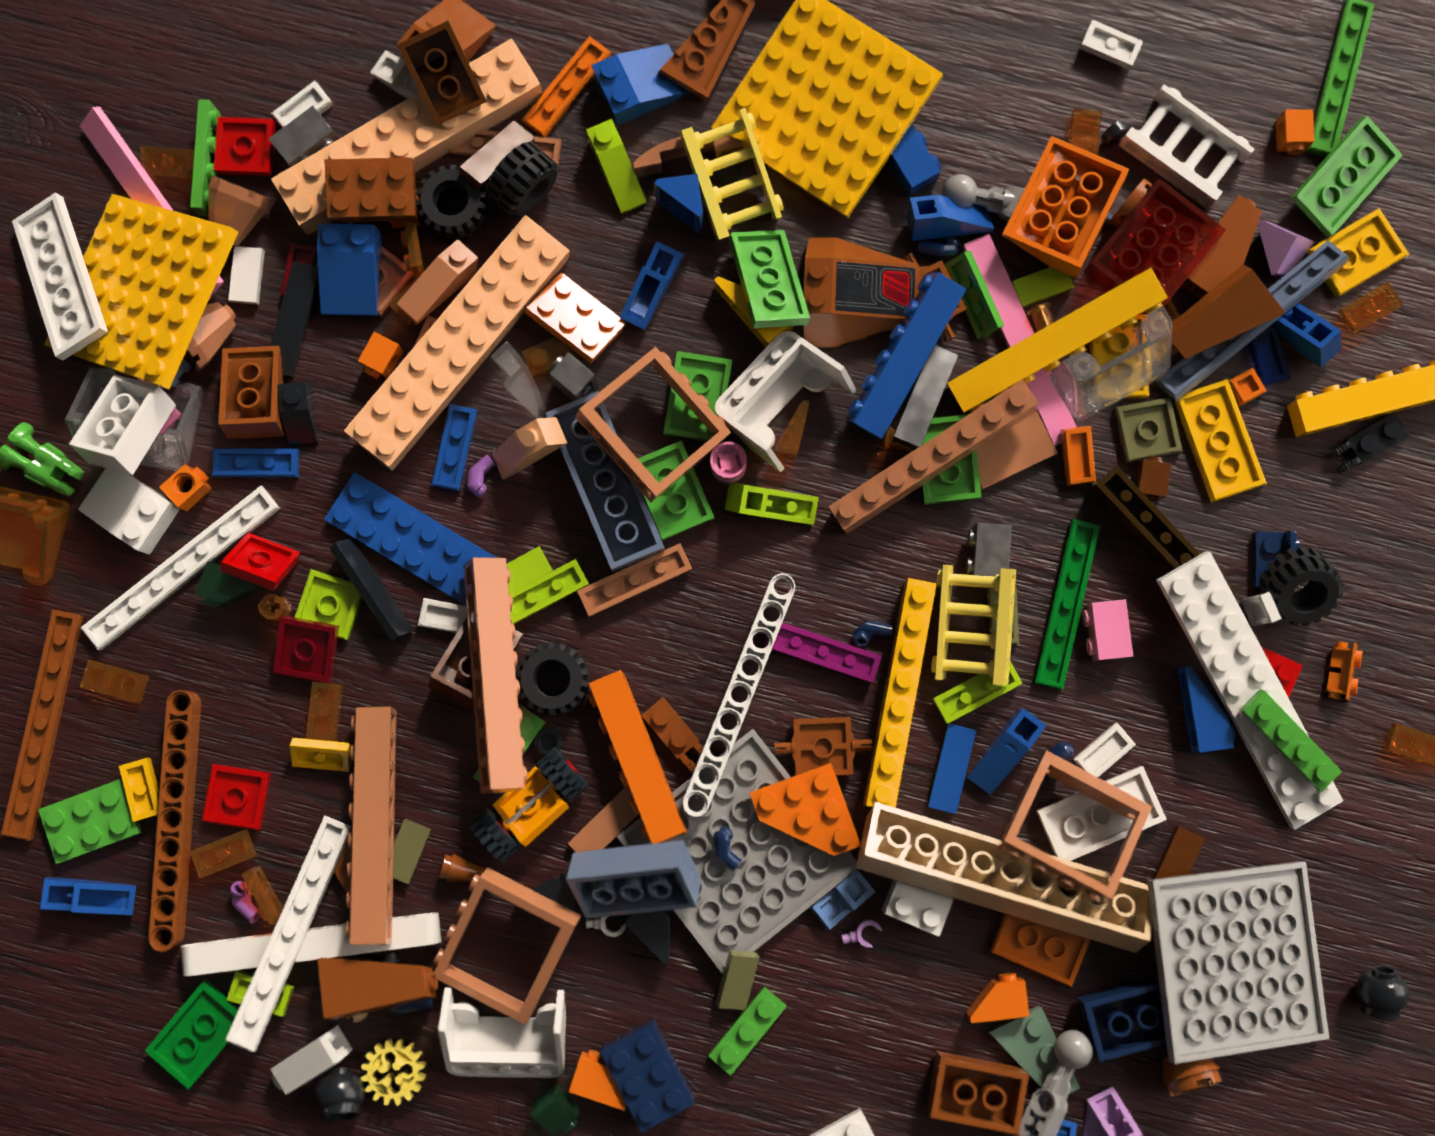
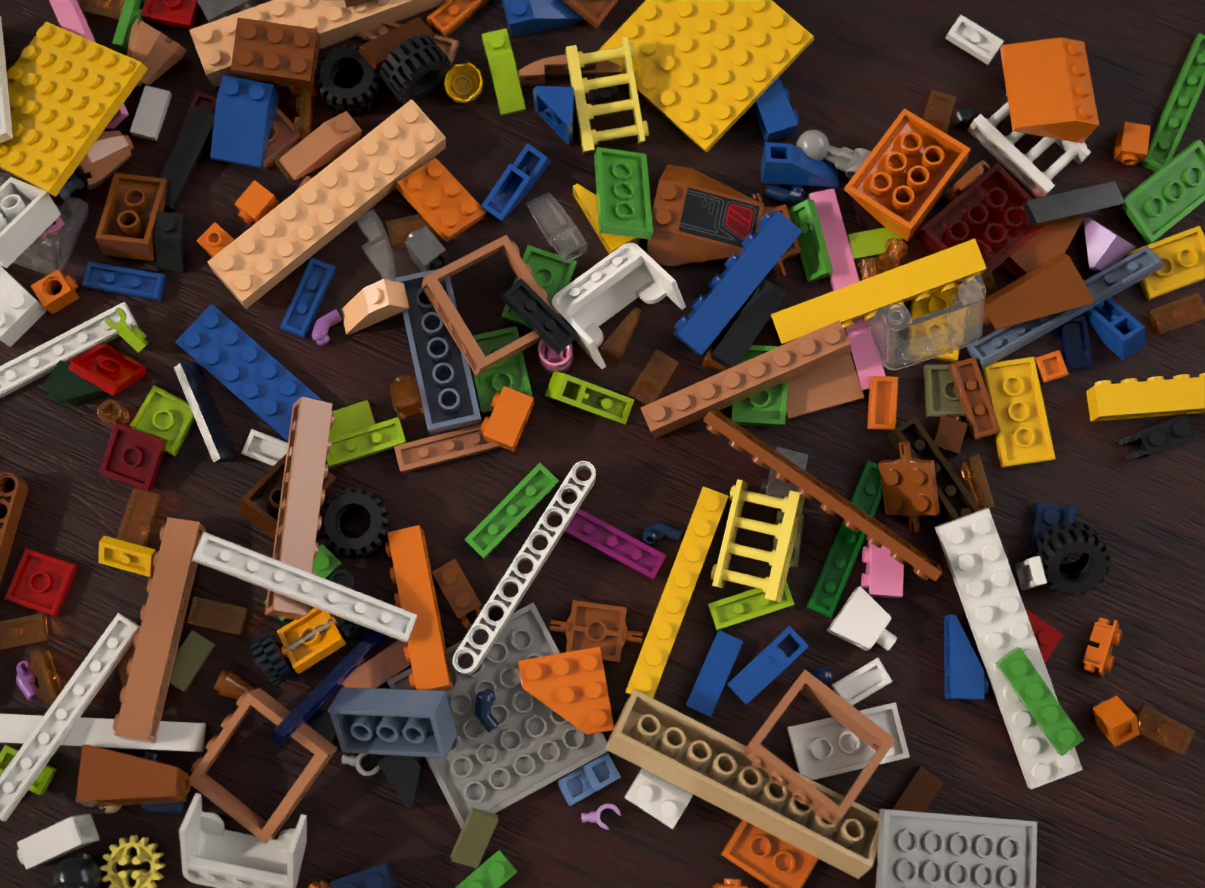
camera: 10 degrees right, 5 degrees down
(278, 520) = (133, 336): none -> lime plate
(346, 404) = (214, 240): none -> orange brick
(428, 800) = (217, 616): none -> clear orange plate
(517, 759) = (304, 587): none -> white tile
(565, 847) = (327, 686): none -> clear blue tile
(575, 185) = (463, 82): none -> yellow hair
(580, 535) = (406, 396): none -> clear orange slope
(691, 542) = (508, 418): none -> orange brick
(705, 326) = (557, 227): none -> clear slope
(706, 429) = (539, 316): none -> black tile
(712, 636) = (512, 510): none -> bright green plate
(835, 470) = (654, 377): none -> clear orange slope
(1047, 572) = (830, 500): none -> dark orange plate
(1063, 296) = (891, 257): none -> clear orange bush
(1095, 689) = (862, 622): none -> white torso
(1122, 541) = (909, 487): none -> dark orange plate
(1173, 434) = (974, 398): none -> dark orange tile
(1186, 514) = (975, 475): none -> clear orange plate
(1201, 87) = (1050, 89): none -> orange slope
(1246, 209) = (1073, 204): none -> black tile
(1370, 745) = (1116, 721): none -> orange brick

